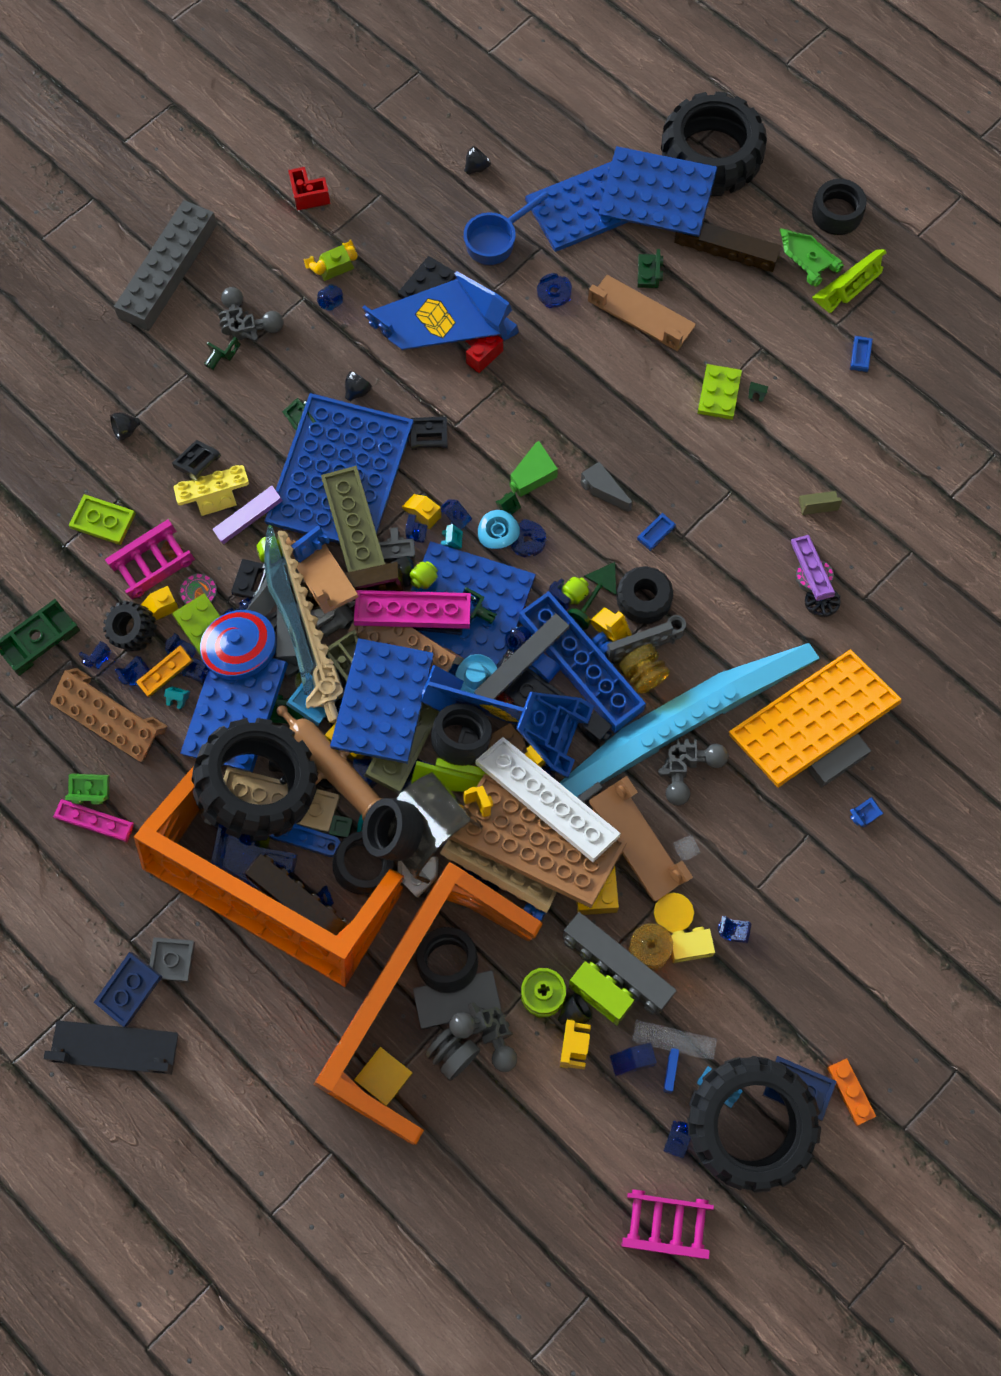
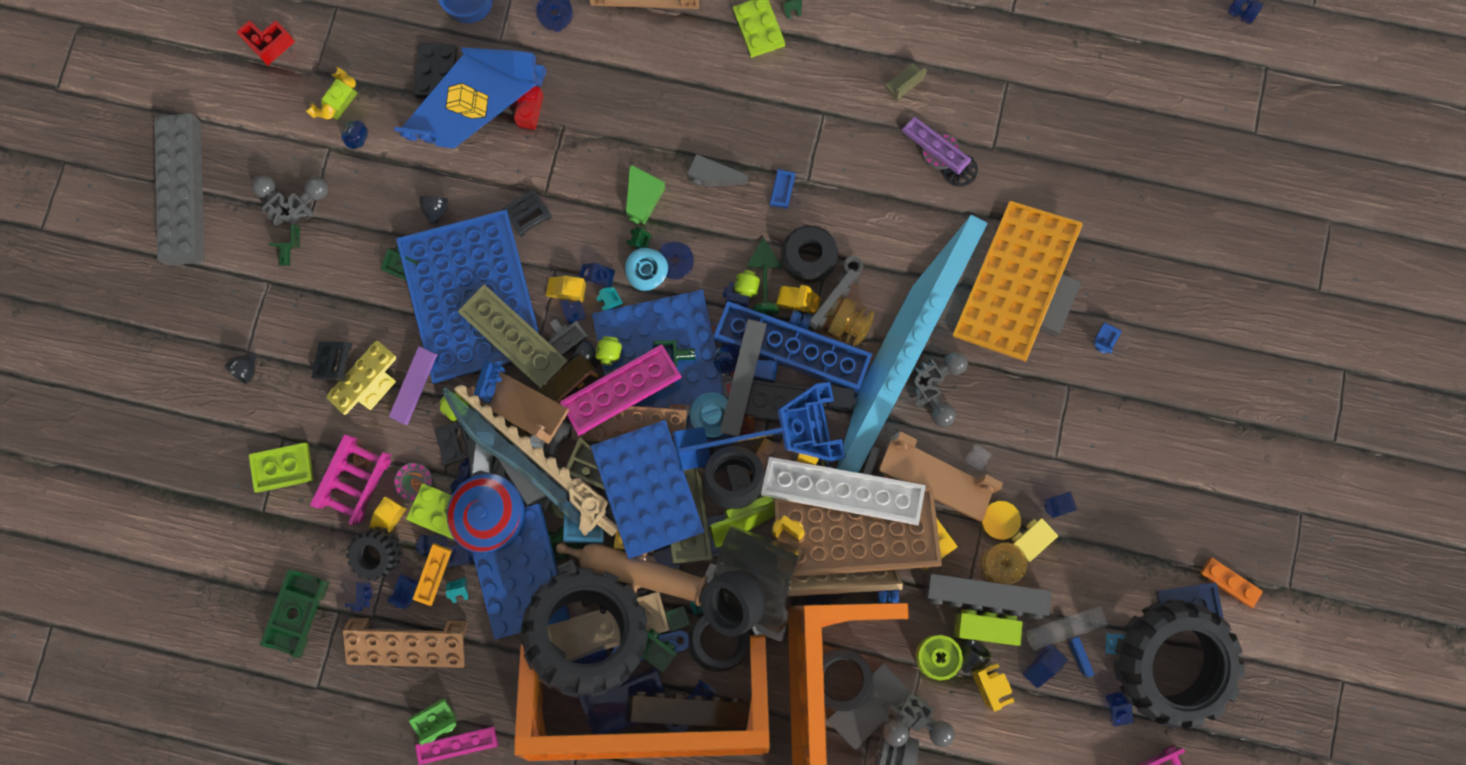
camera: 30 degrees left, 10 degrees up
(305, 840) = (658, 652): none -> dark green bracket

